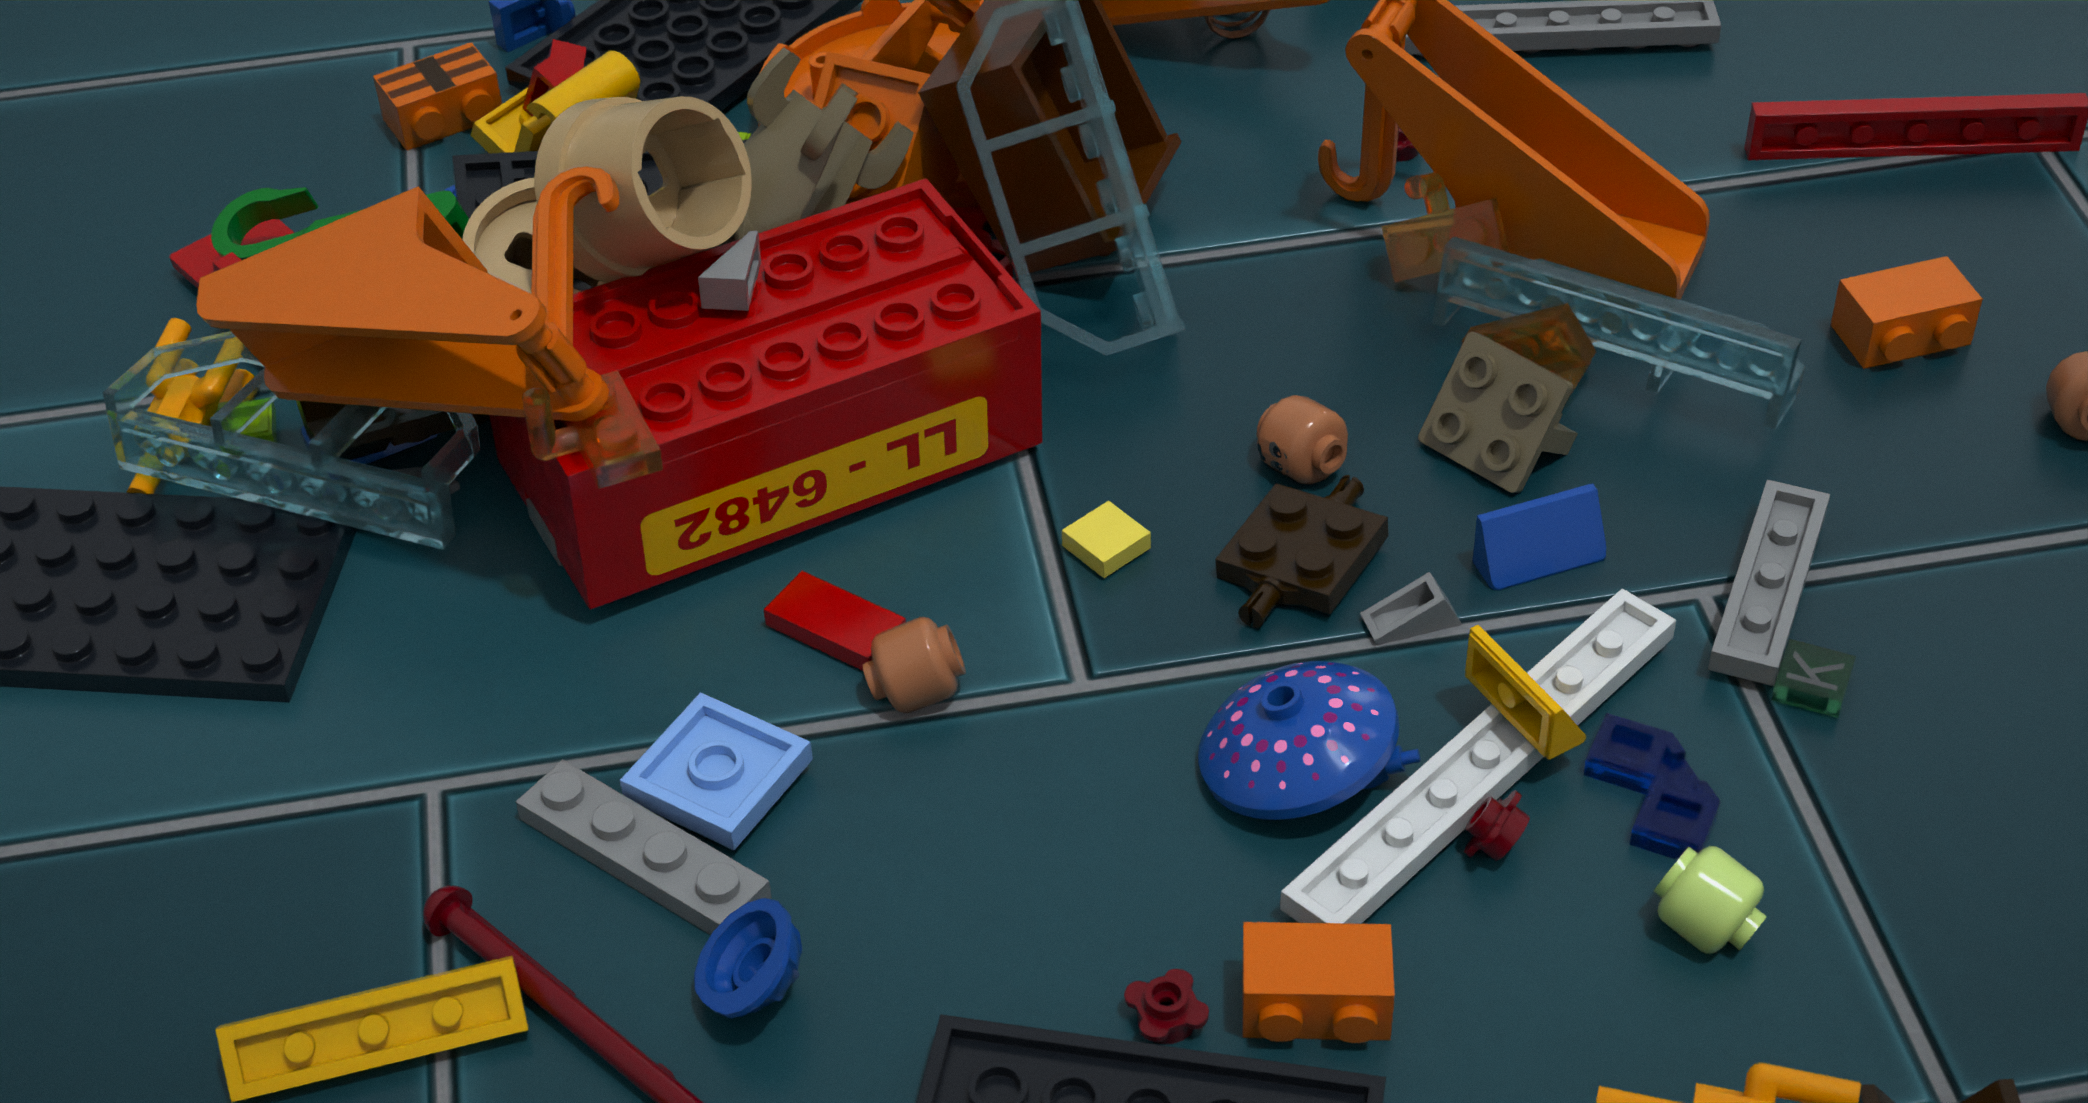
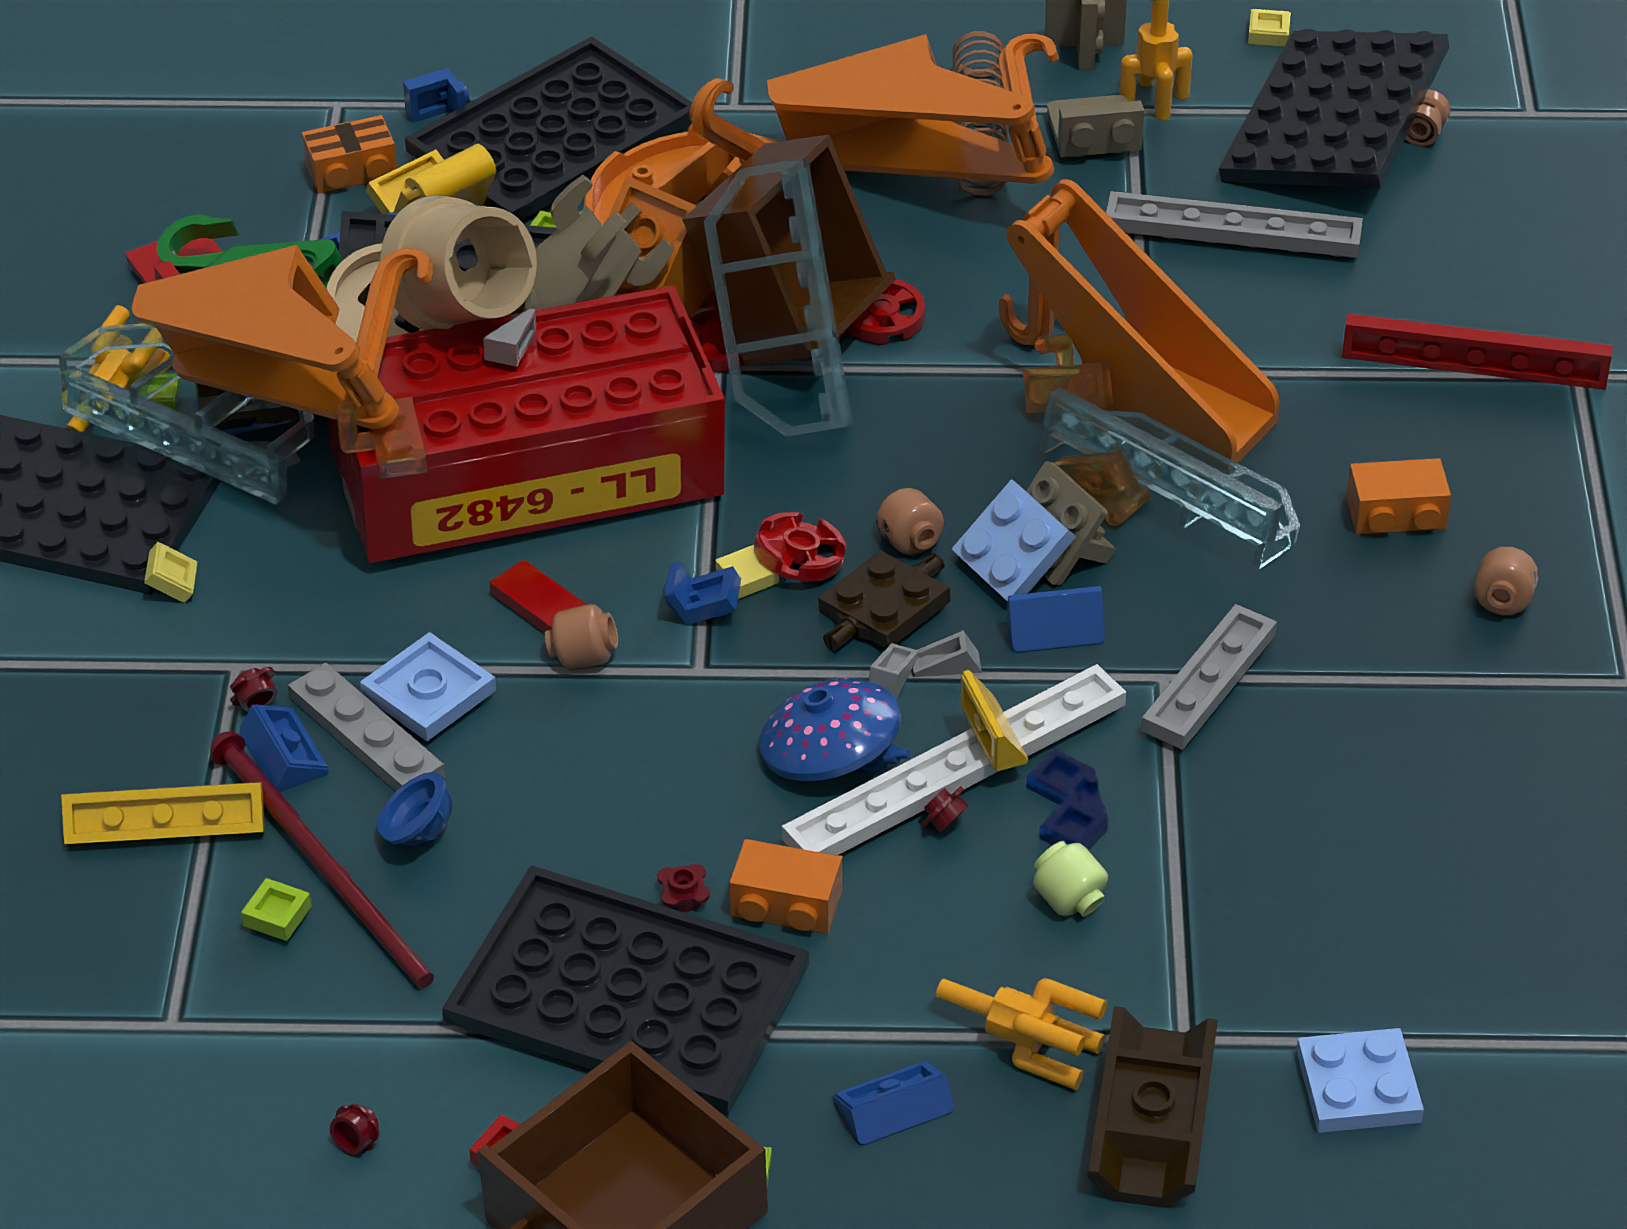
camera: 10 degrees right, 0 degrees up
(313, 667) = (171, 572): none -> light yellow tile
(468, 815) = (253, 688): none -> dark red plate
(526, 894) = (282, 746): none -> blue slope
(562, 62) = (442, 147): red piece -> none
(1060, 581) = (701, 596): none -> blue bracket
(1148, 492) = (788, 540): none -> red piece
(1169, 199) = (884, 315): none -> red piece
(1348, 635) = (893, 668): none -> light grey piece
(1452, 445) = (1013, 542): none -> light blue plate
(1813, 678) = (1212, 748): clear green tile -> none

